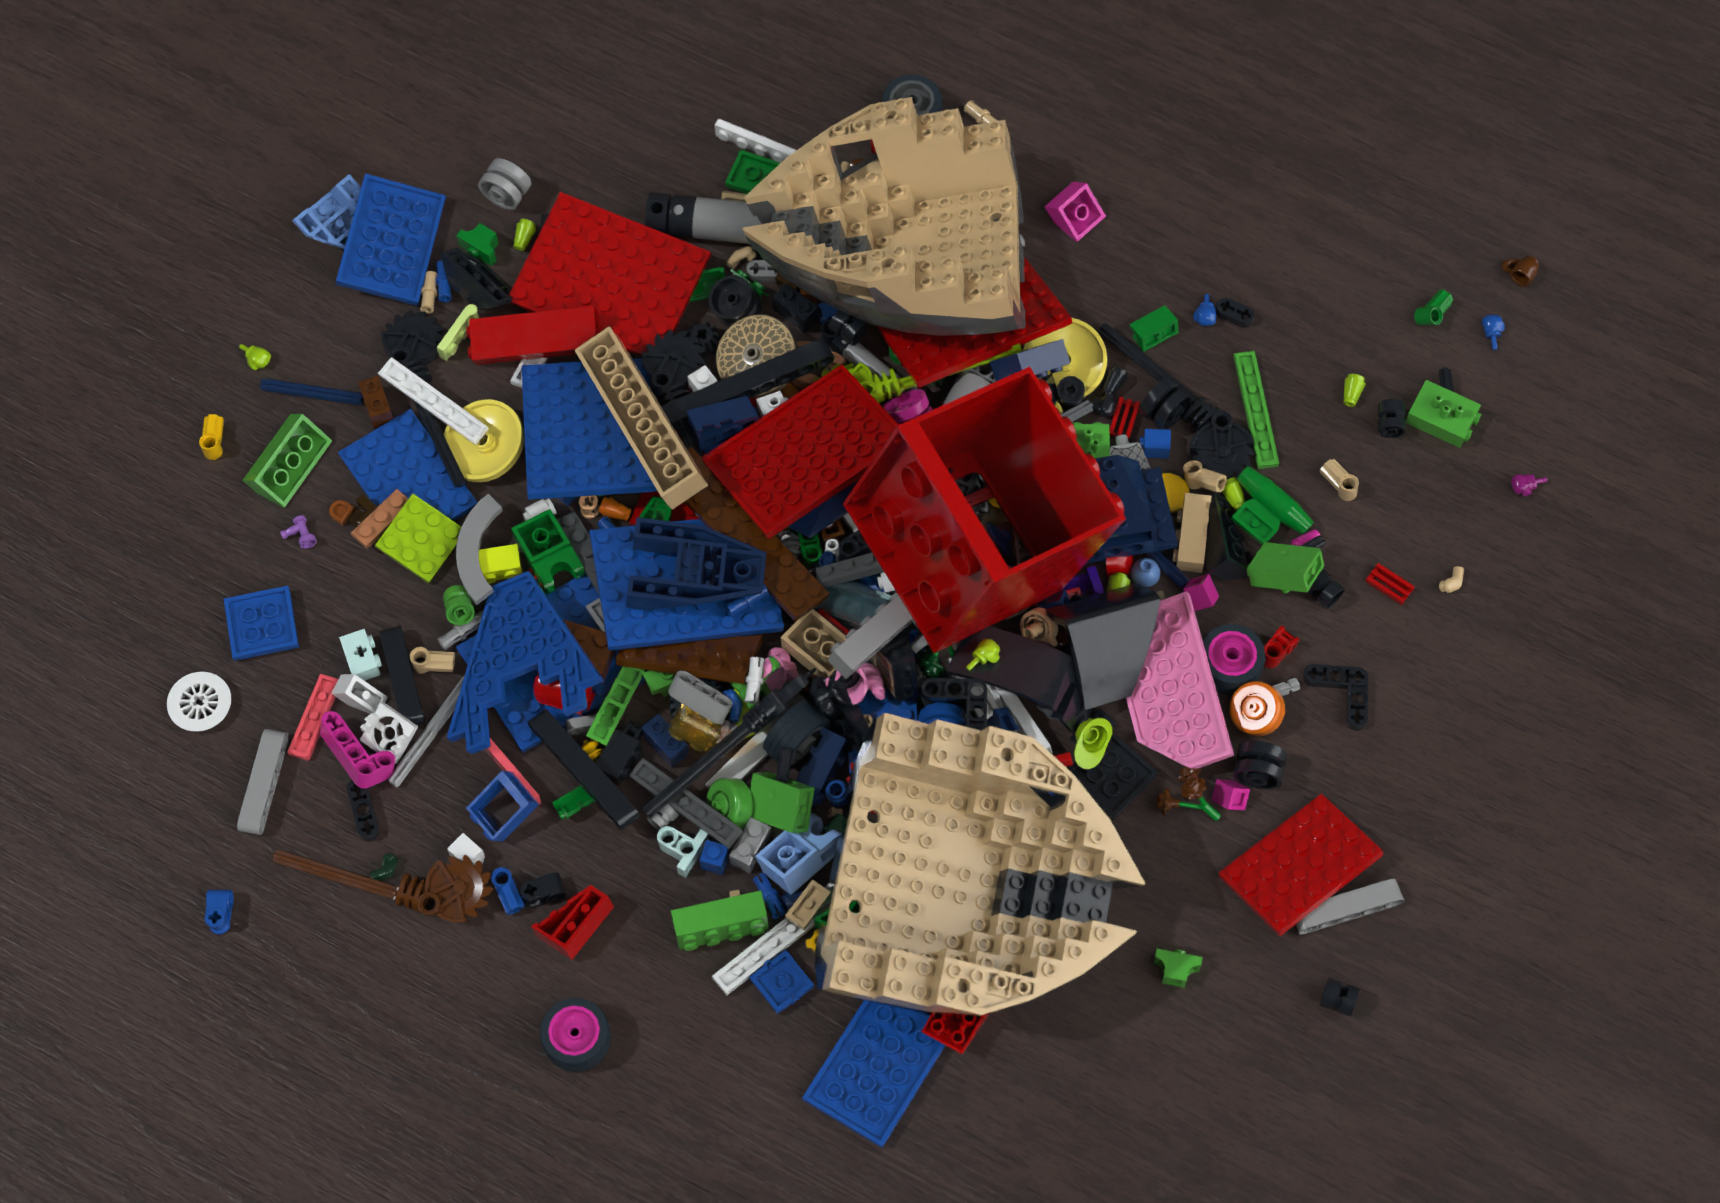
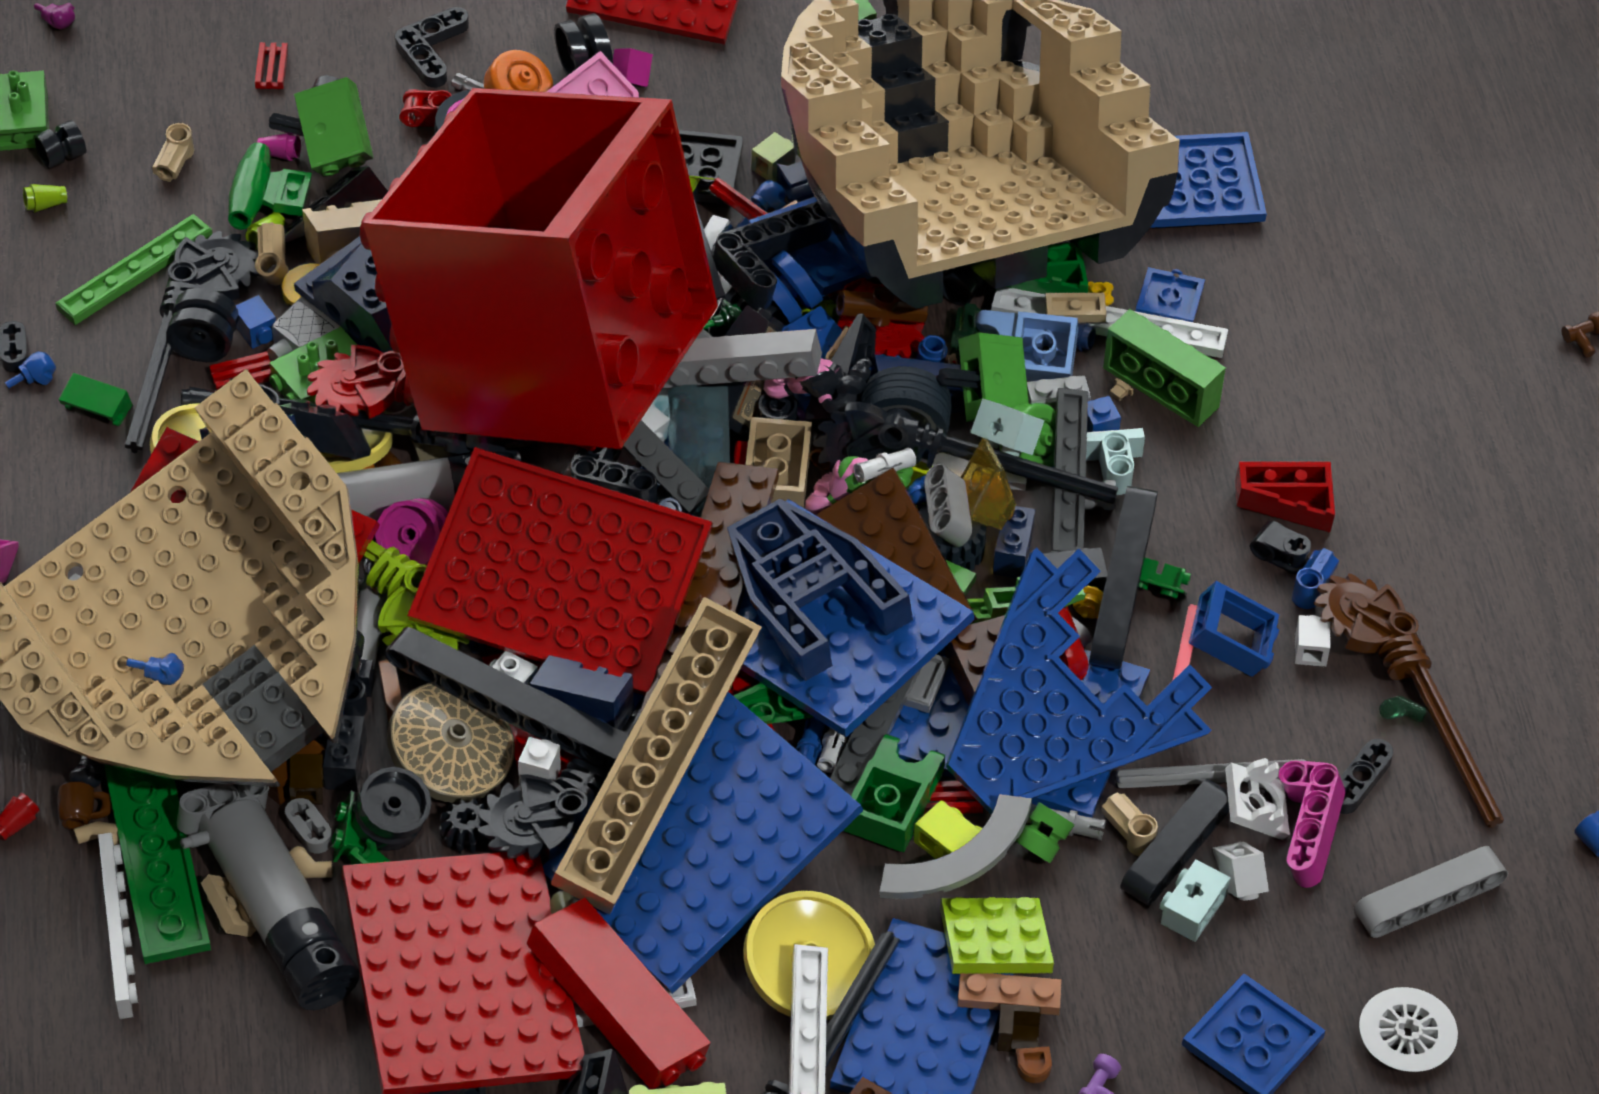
camera: 130 degrees left, 15 degrees down
(310, 723) = (1304, 903): coral tile -> none
(537, 508) = (852, 844): white brick -> none
(578, 1051) = (1398, 417): wheel -> none
(730, 771) = (1007, 427): none -> light aqua brick
(769, 896) = (1092, 357): blue pin -> none
(896, 226) = (165, 670): none -> blue piece
(1191, 789) = (662, 71): reddish brown plant -> none
(1453, 583) = (223, 18): tan arm -> none

